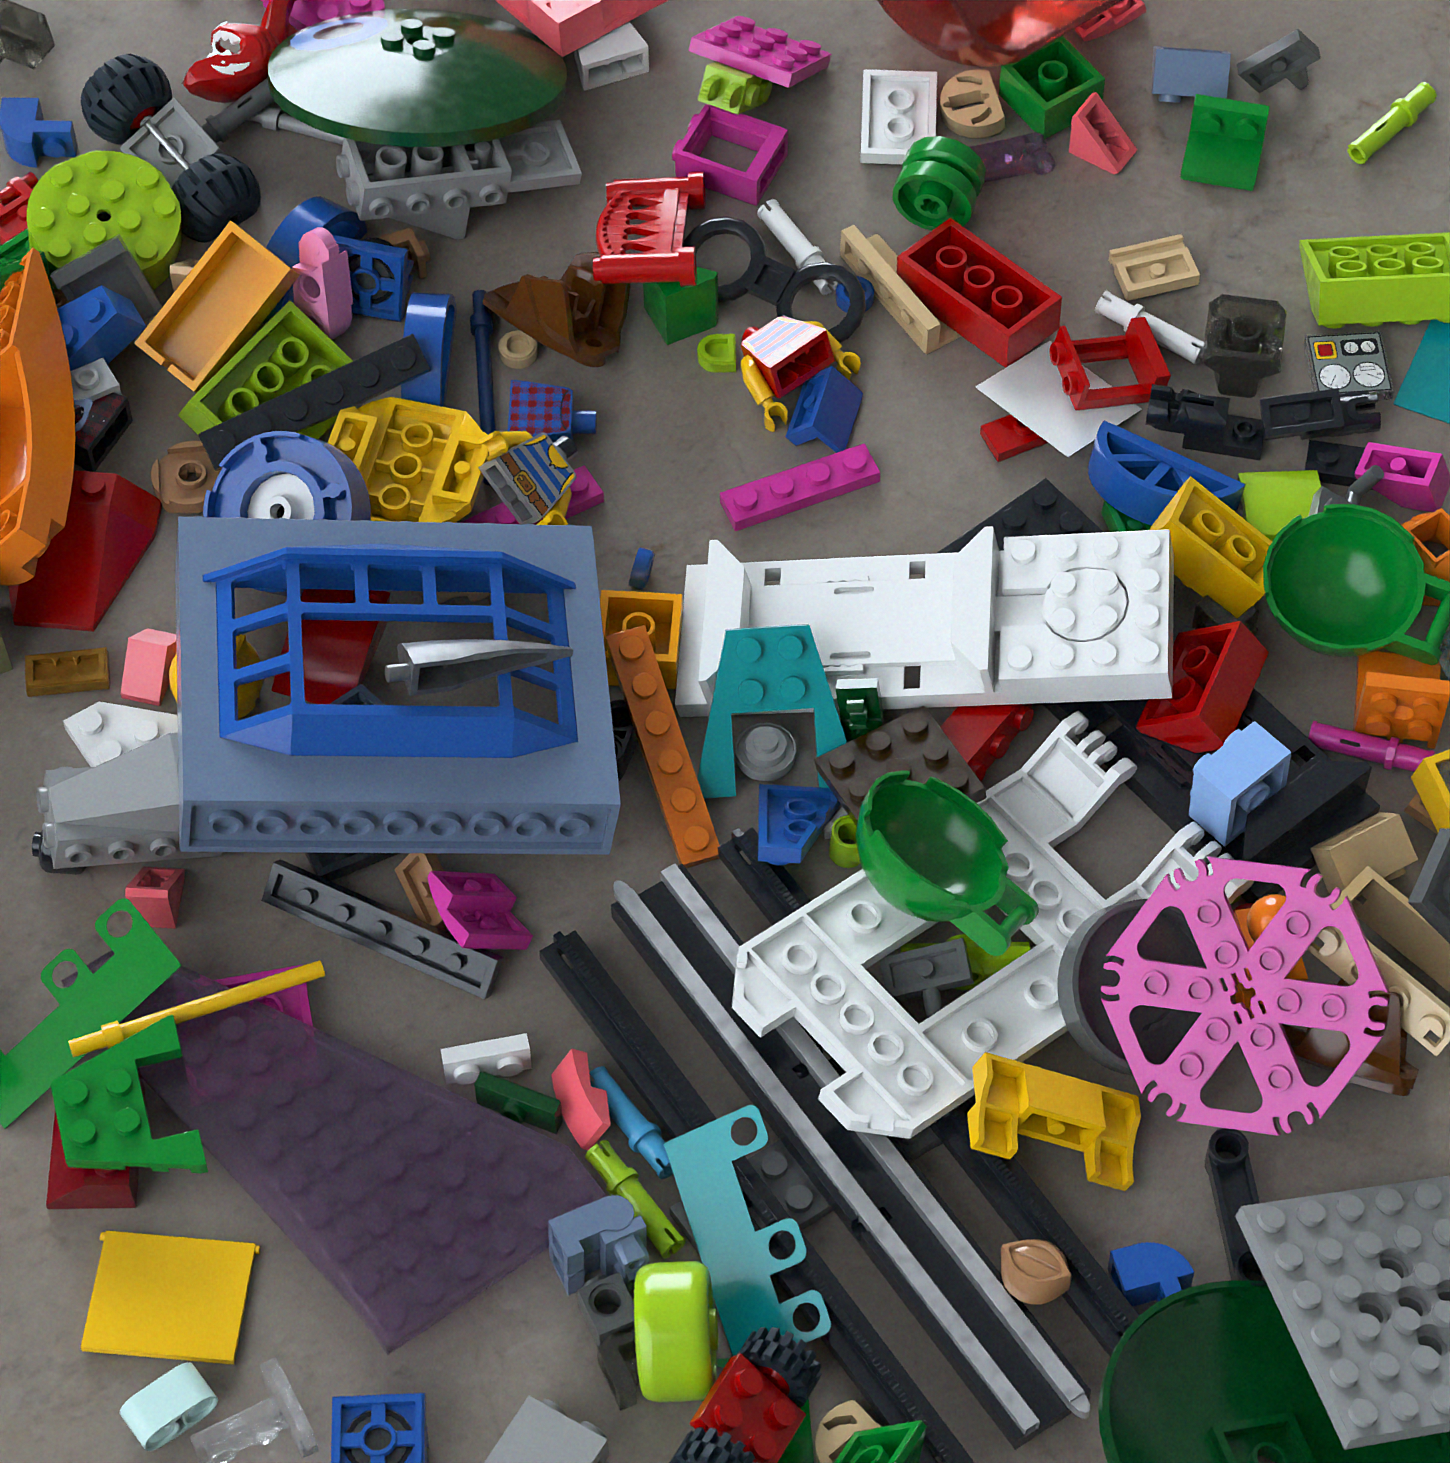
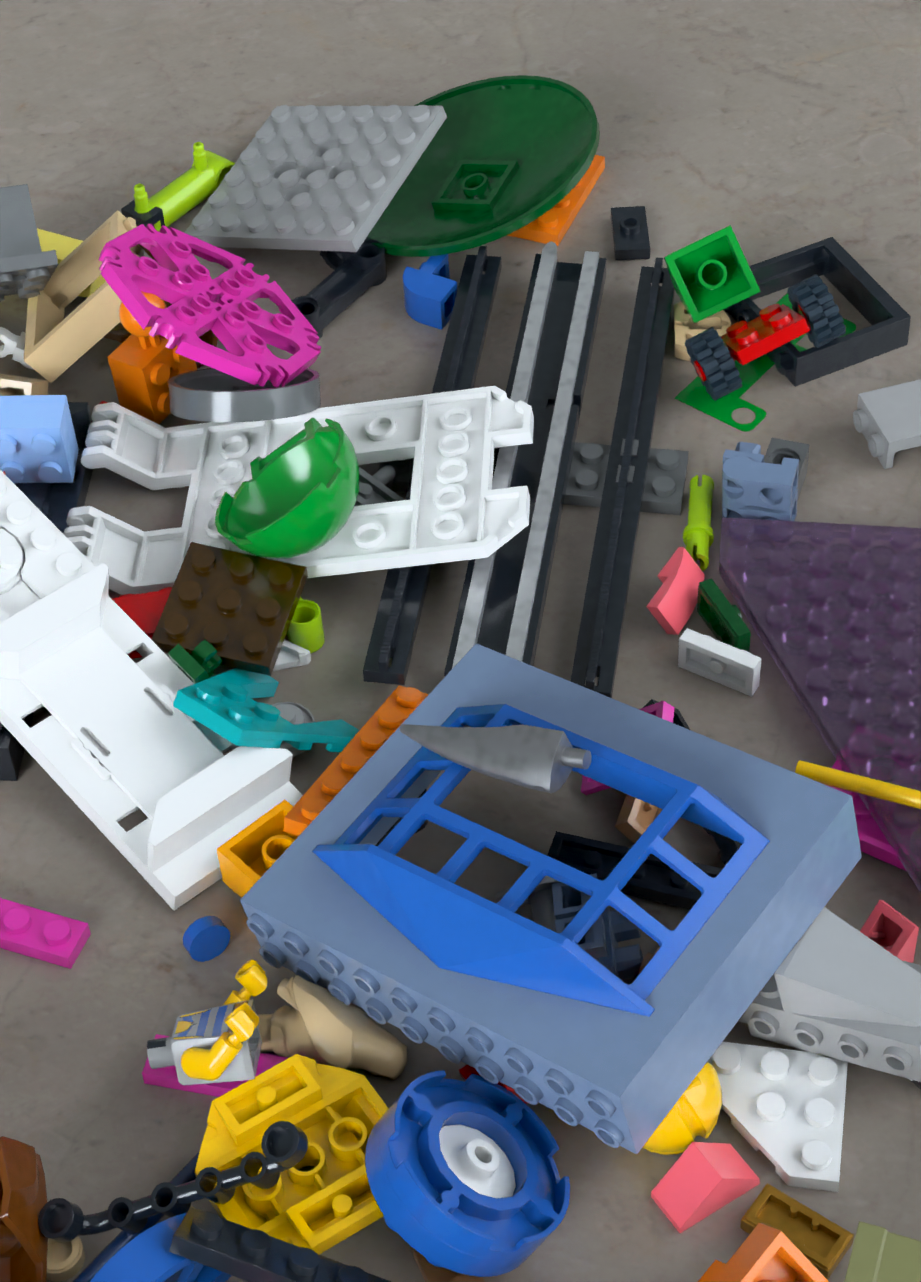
camera: 135 degrees left, 10 degrees down
(385, 394) = (282, 1147): none -> black bar
(547, 410) = (130, 1139): blue torso -> none
(617, 1366) = (809, 433): clear smoke bracket -> none
(642, 1135) = (654, 553): dark azure pin -> none
(675, 1331) = (761, 396): lime wheel -> none
(726, 1237) = (666, 450): teal piece -> none
(791, 821) = (331, 657): blue wing -> none
(1034, 1271) = (500, 303): medium nougat hat -> none
(1057, 1110) = (391, 371): yellow bracket -> none

